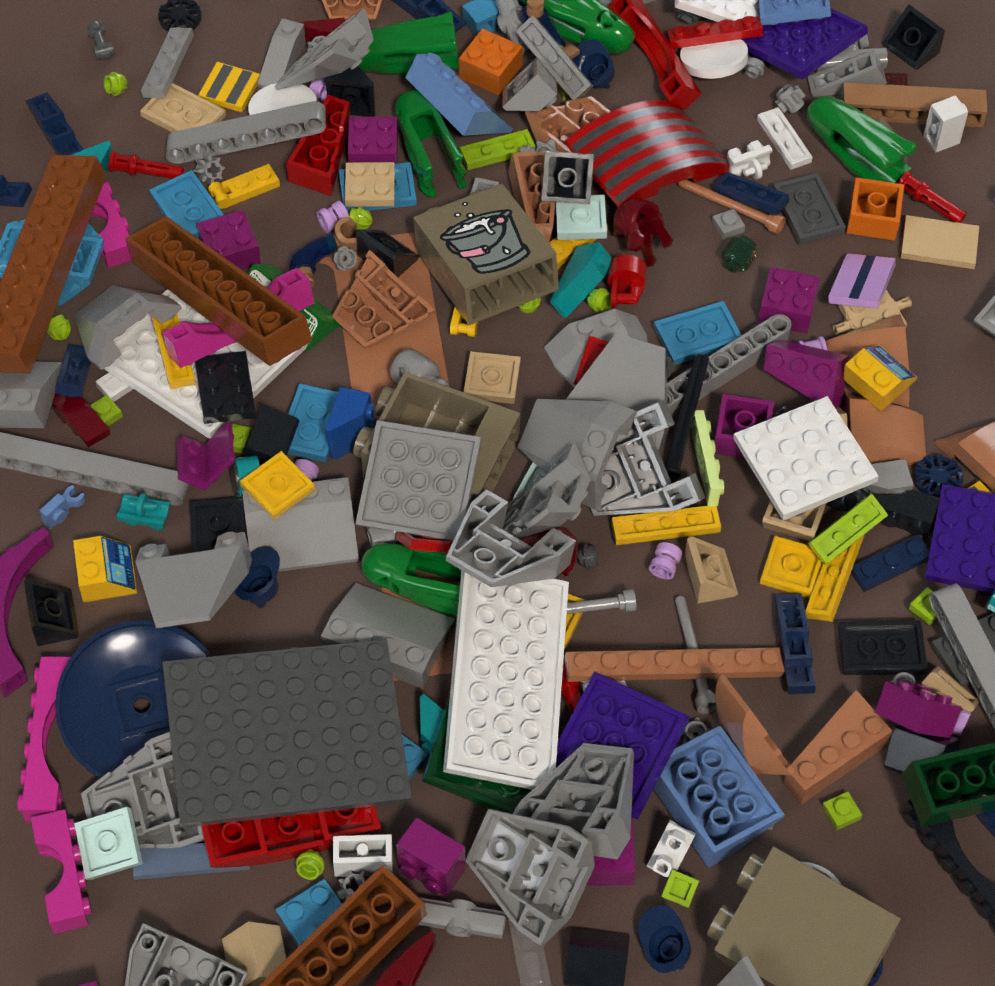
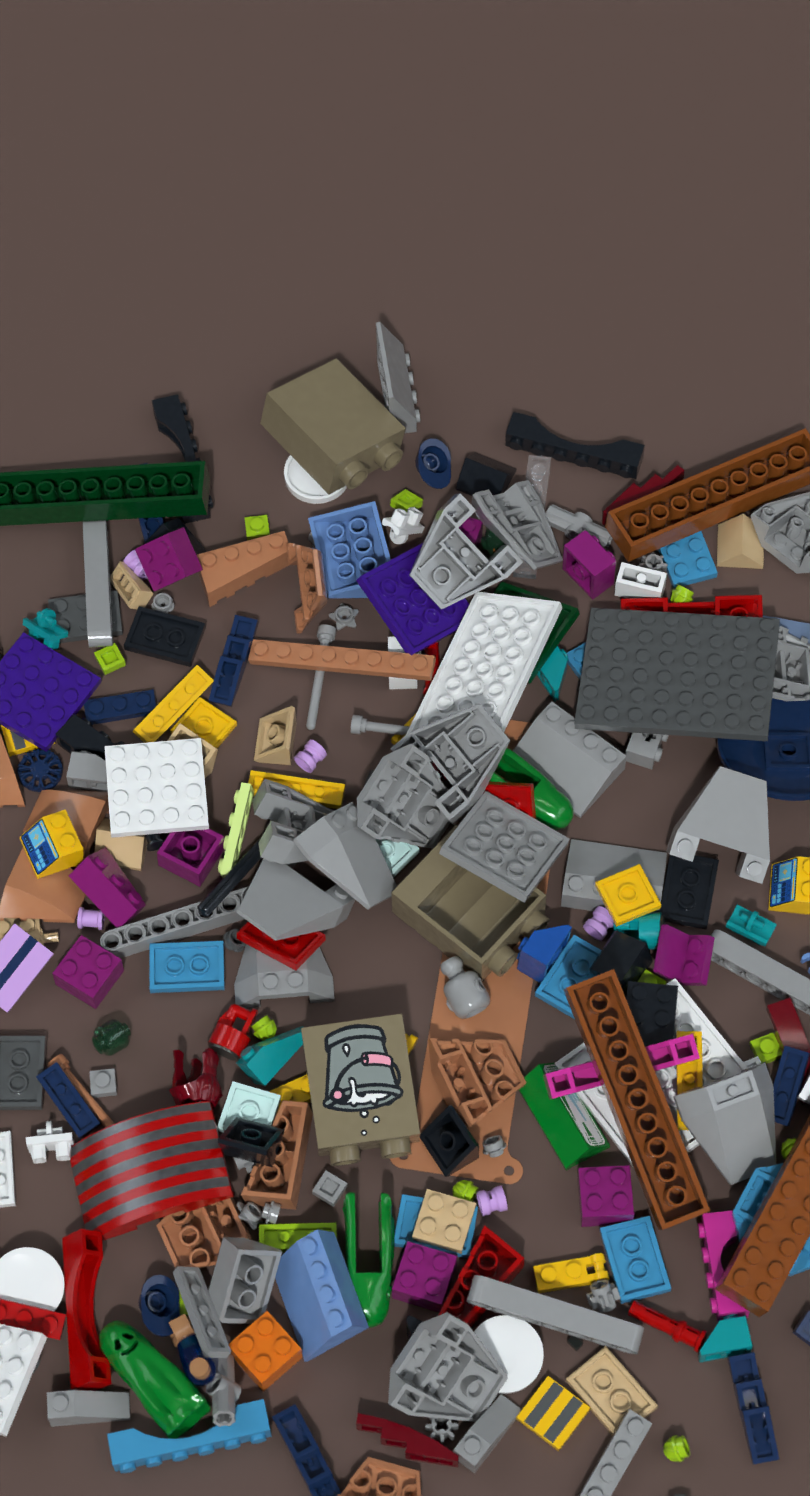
camera: 160 degrees left, 5 degrees up
(261, 581) = (659, 830): dark blue piece -> none
(310, 254) = (533, 1153): piece -> none
(399, 43) = (342, 1386): green piece -> none
(492, 377) = (395, 976): tan plate -> none
(848, 529) = (147, 724): lime plate -> none

